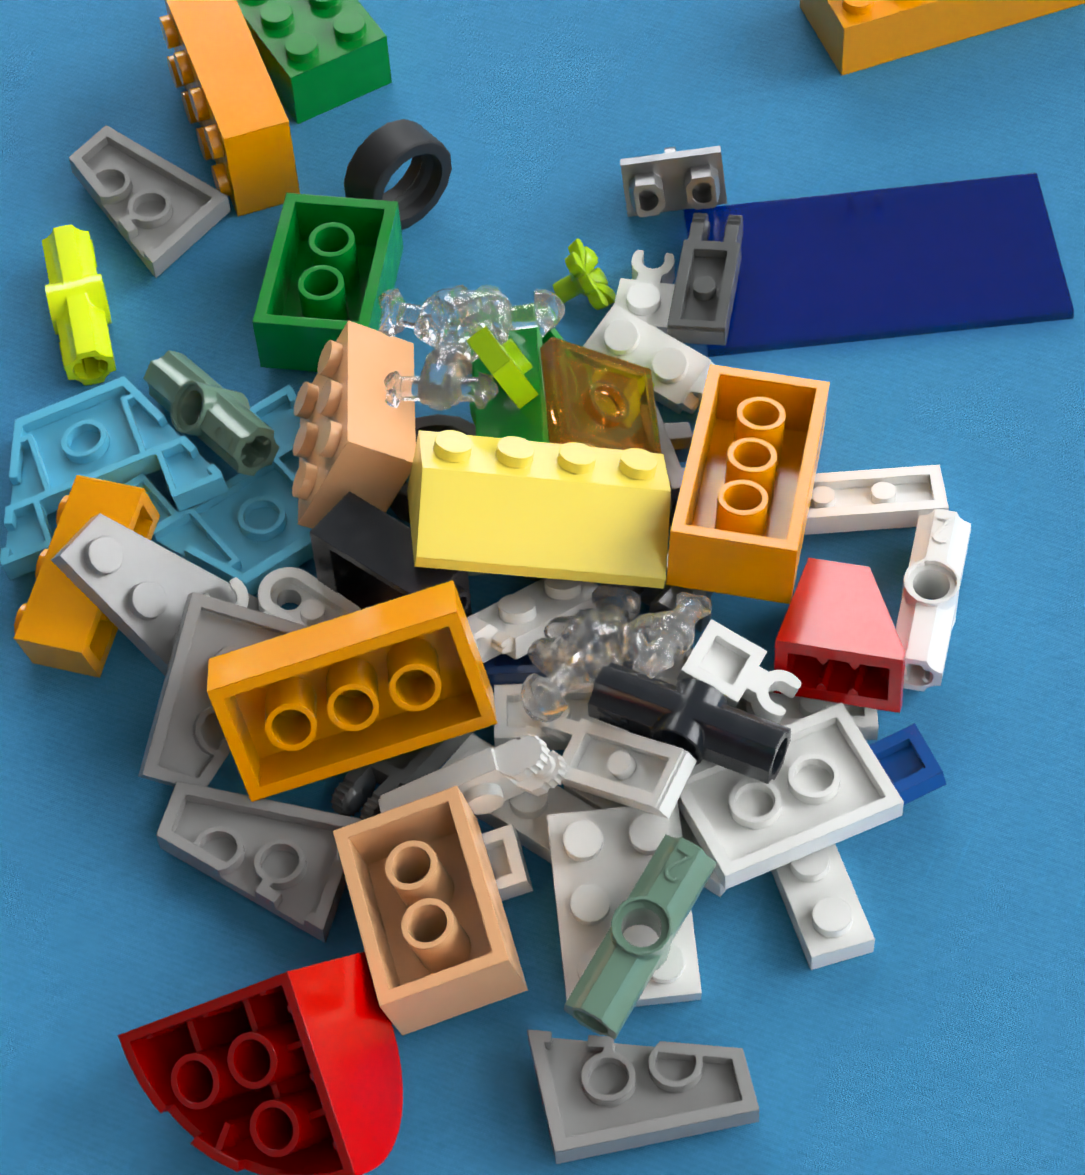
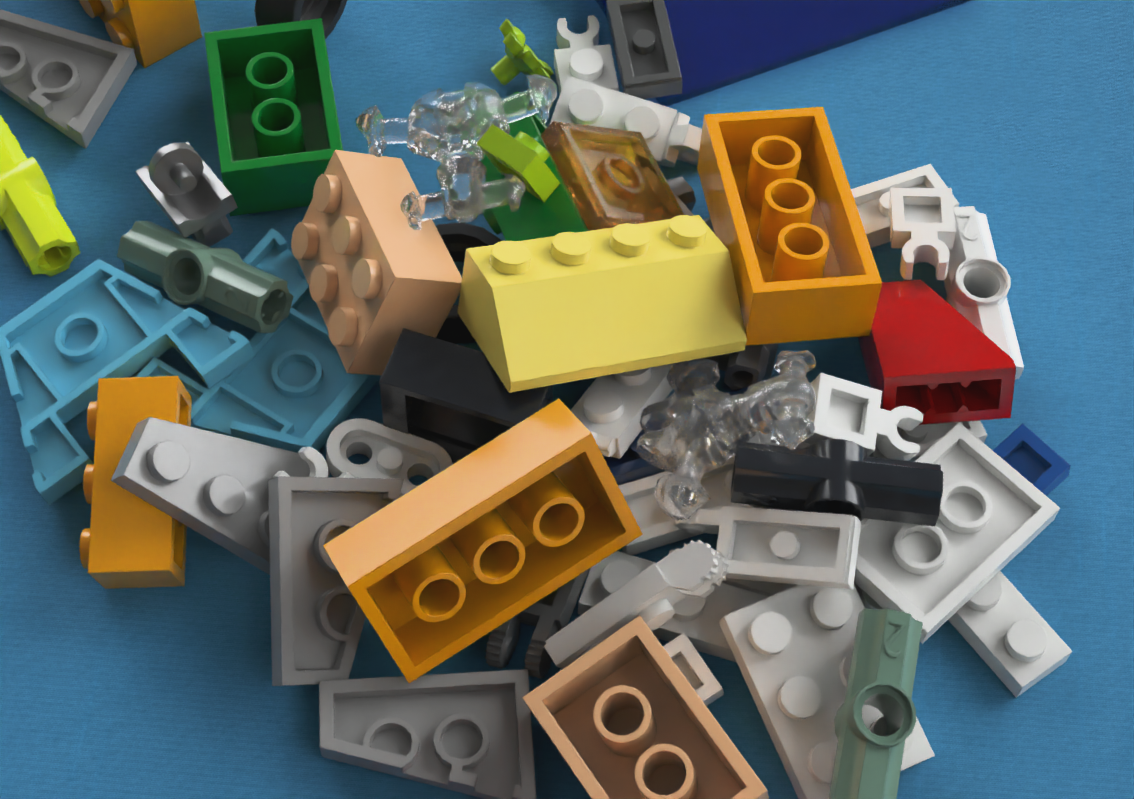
camera: 25 degrees left, 5 degrees up
(223, 335) = (189, 193): none -> flat silver hips
(891, 516) = (923, 227): none -> white plate

